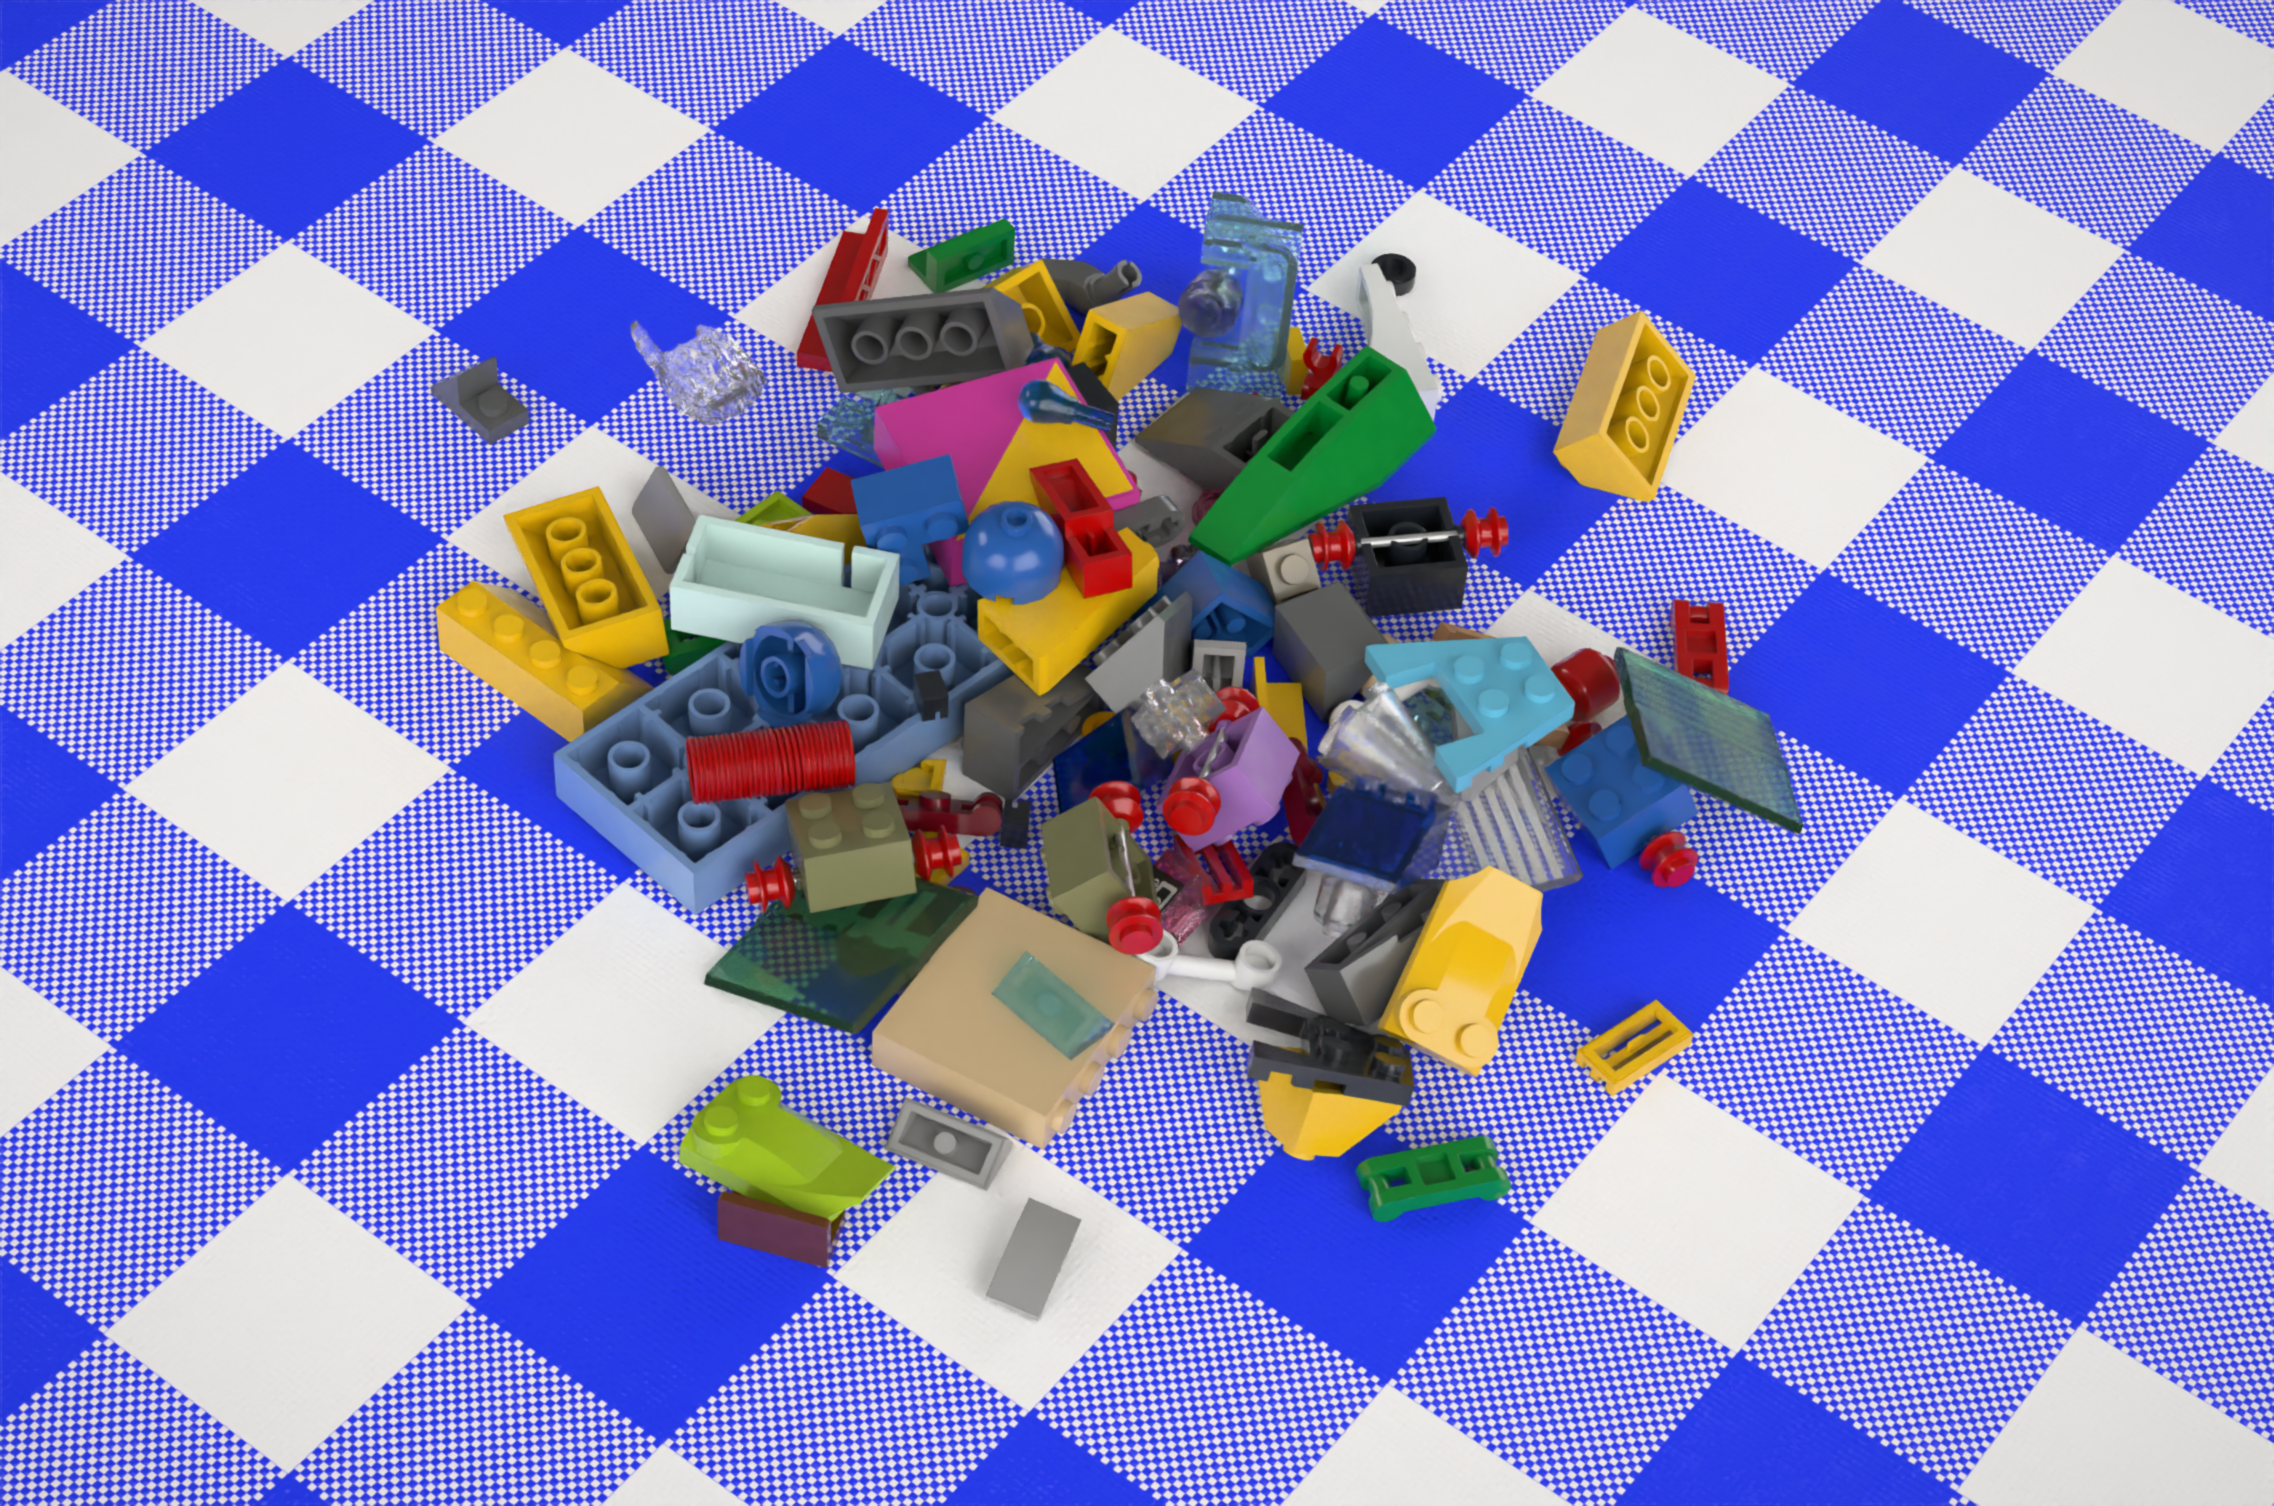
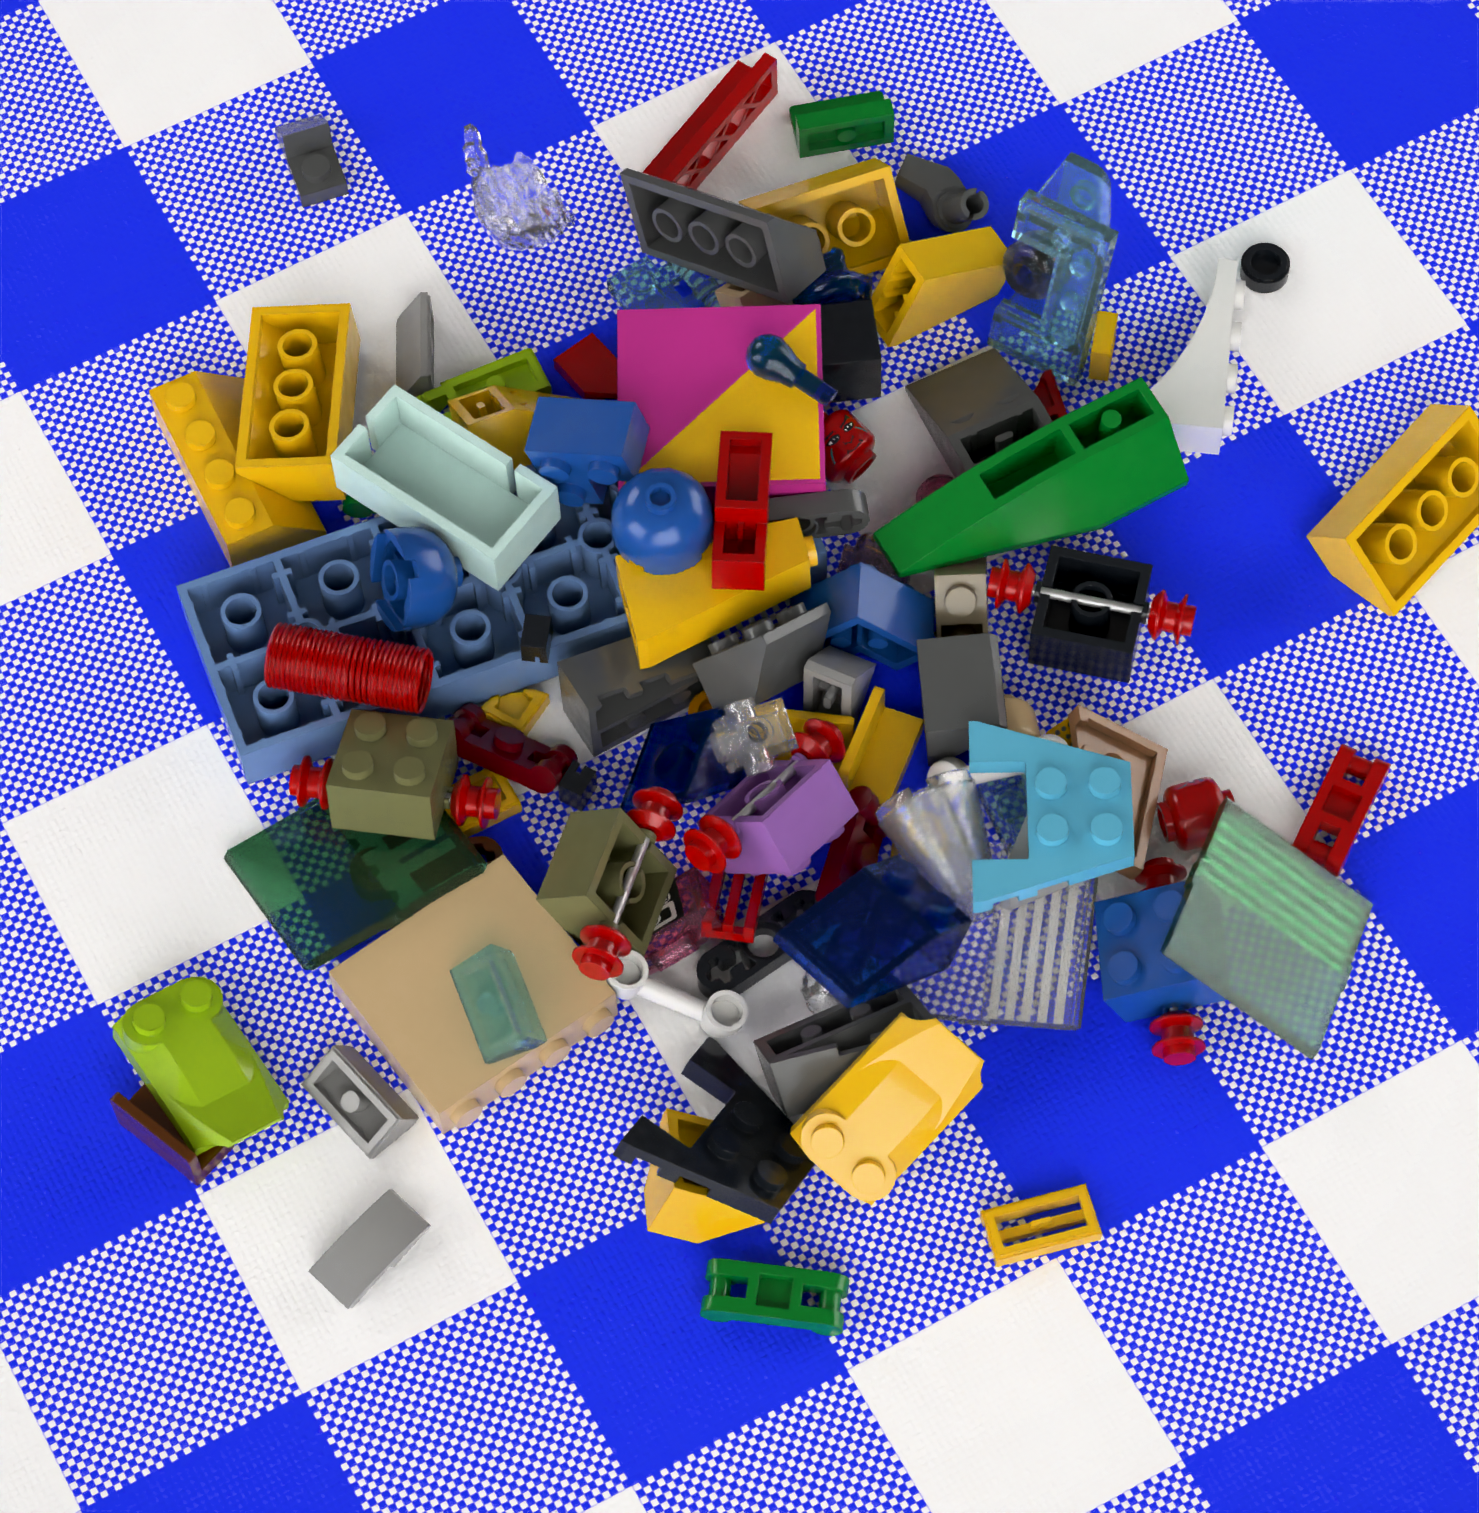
camera: 30 degrees right, 15 degrees up
(1322, 367) = (1113, 371): red plate -> none

